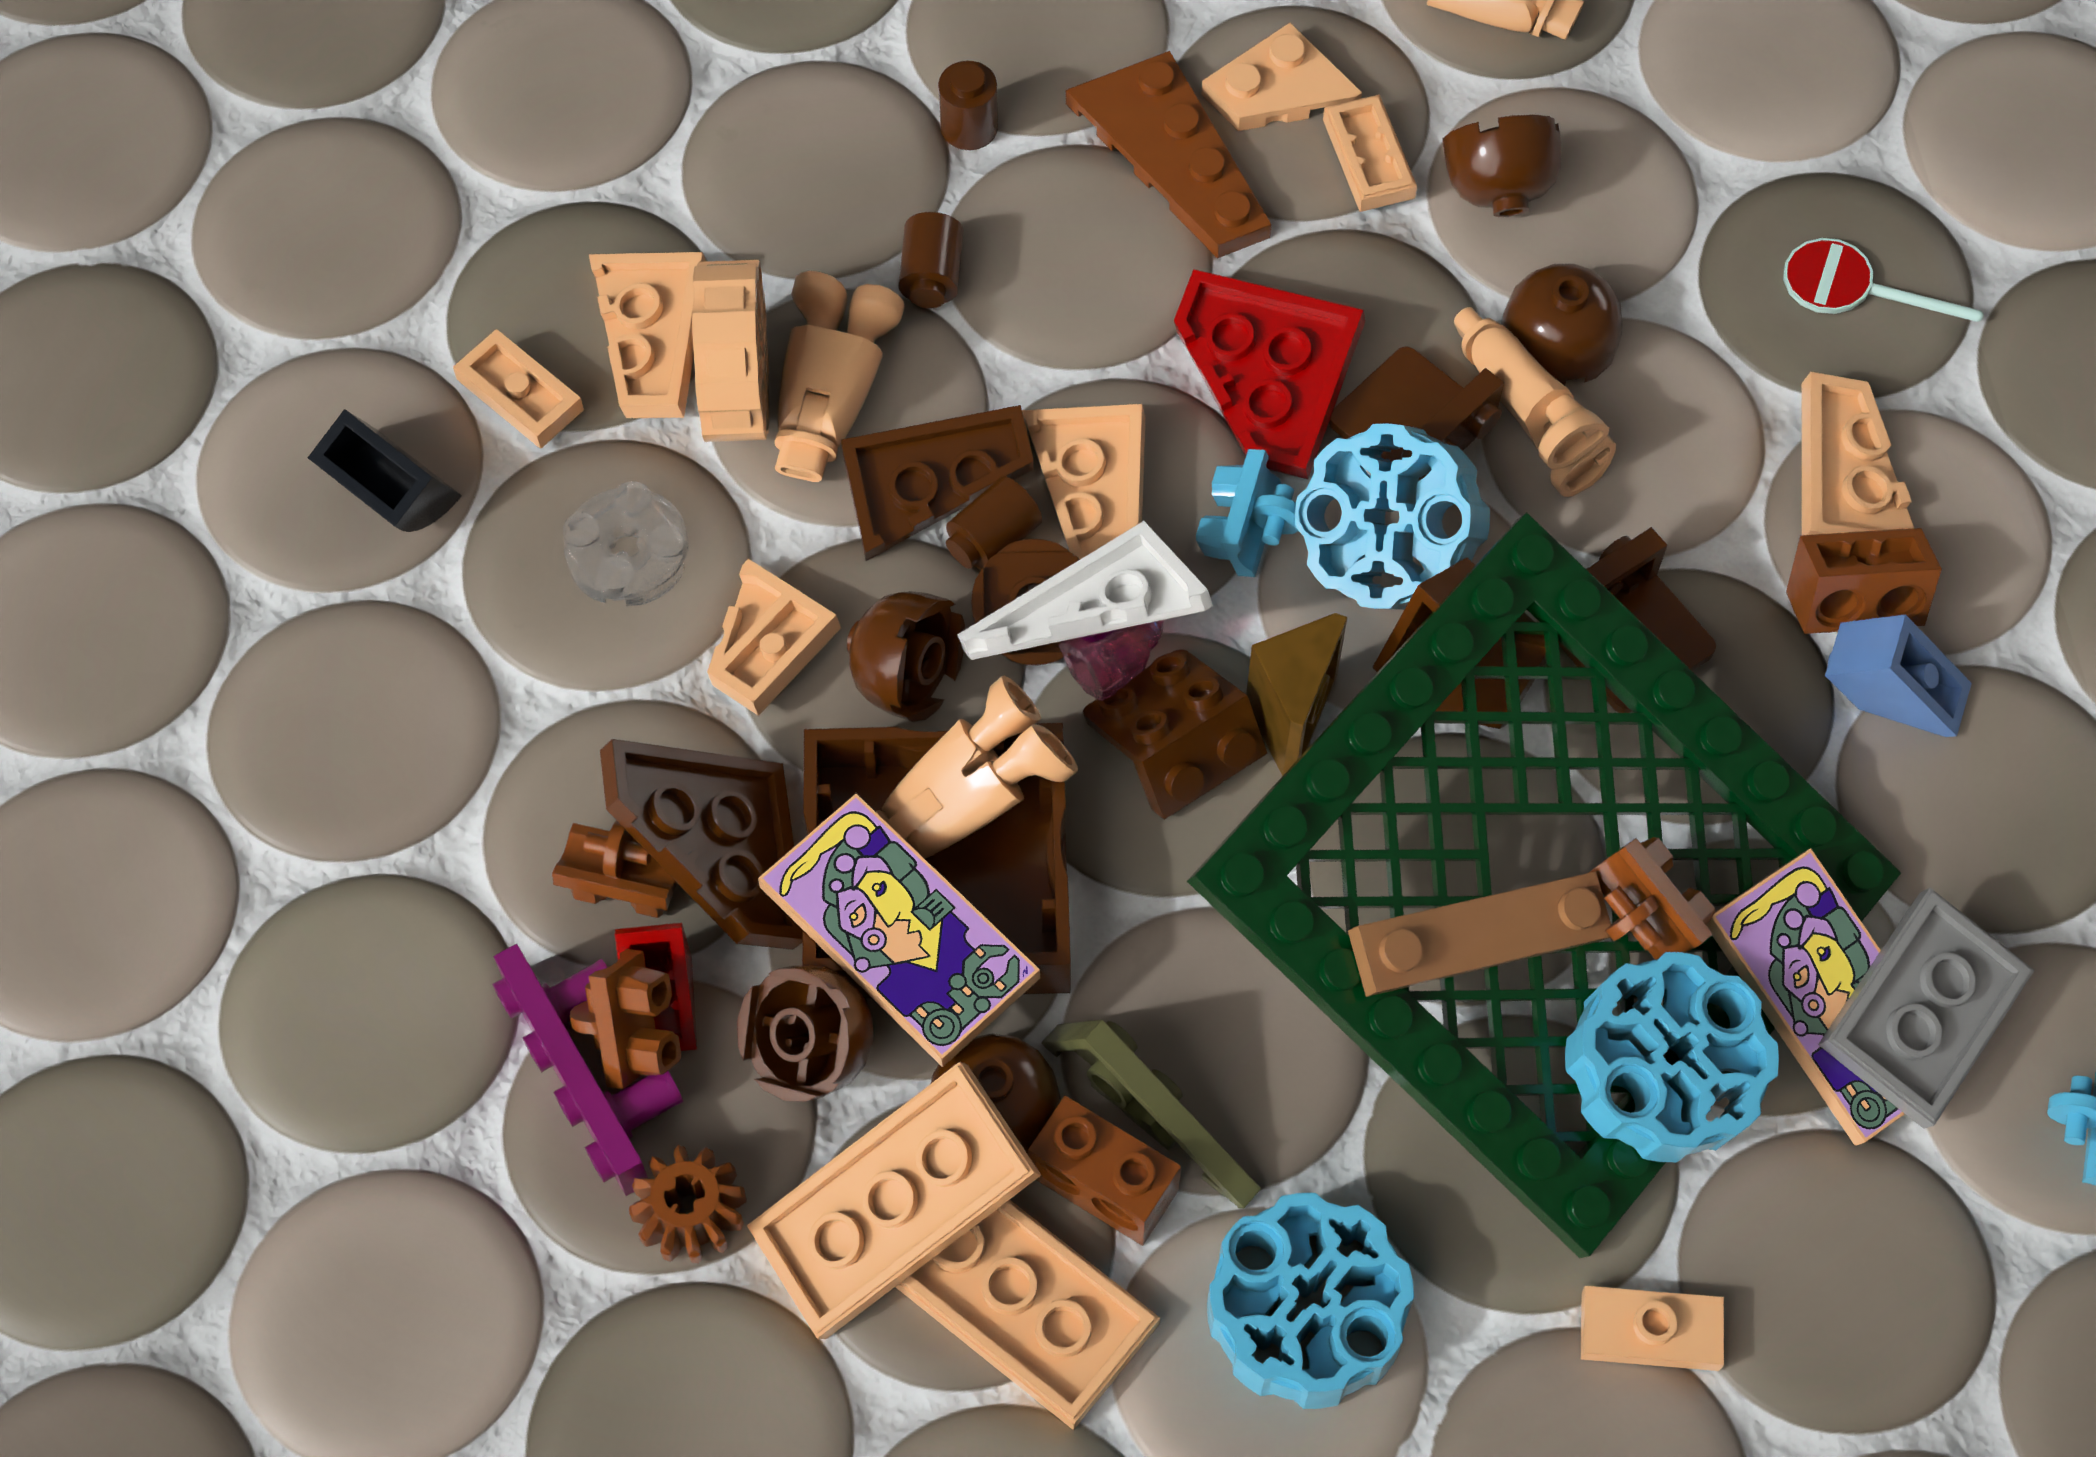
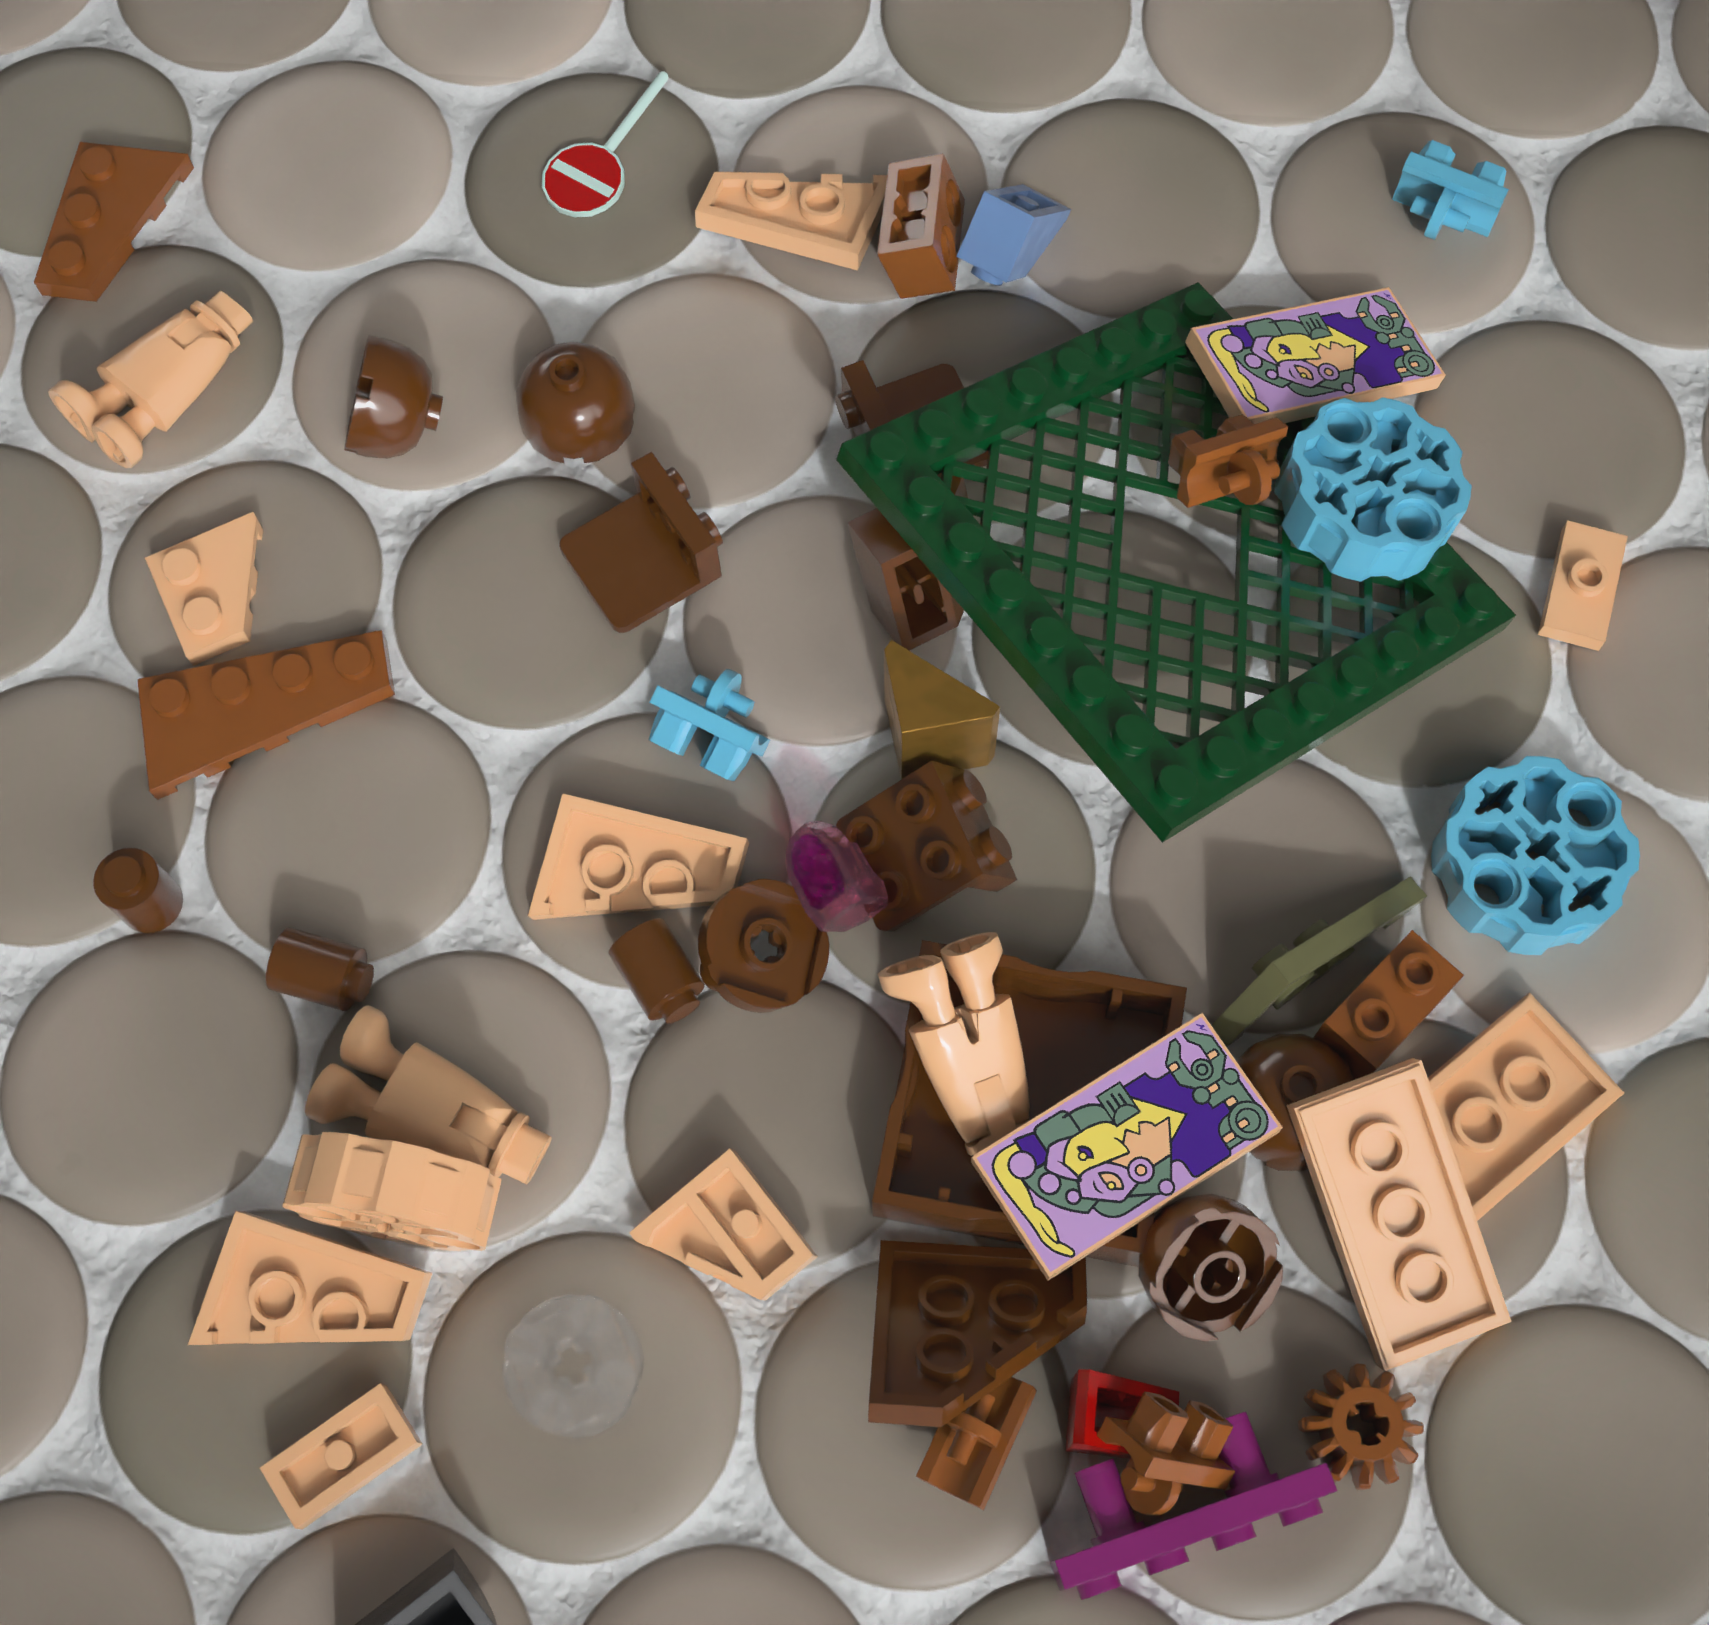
camera: 75 degrees left, 5 degrees up
(905, 651) = (790, 1089): reddish brown cylinder -> none
(929, 471) = (574, 1025): reddish brown wing -> none
(1111, 589) = (791, 860): white wing -> none
(1269, 362) = (544, 668): red plate -> none
(1369, 153) = (326, 521): light nougat plate -> none
(1393, 486) = (764, 527): medium azure connector -> none
(1479, 933) = (1247, 606): medium nougat plate -> none
(1564, 432) = (665, 431): light nougat piece -> none
(1926, 1008) = (1340, 291): light grey tile -> none

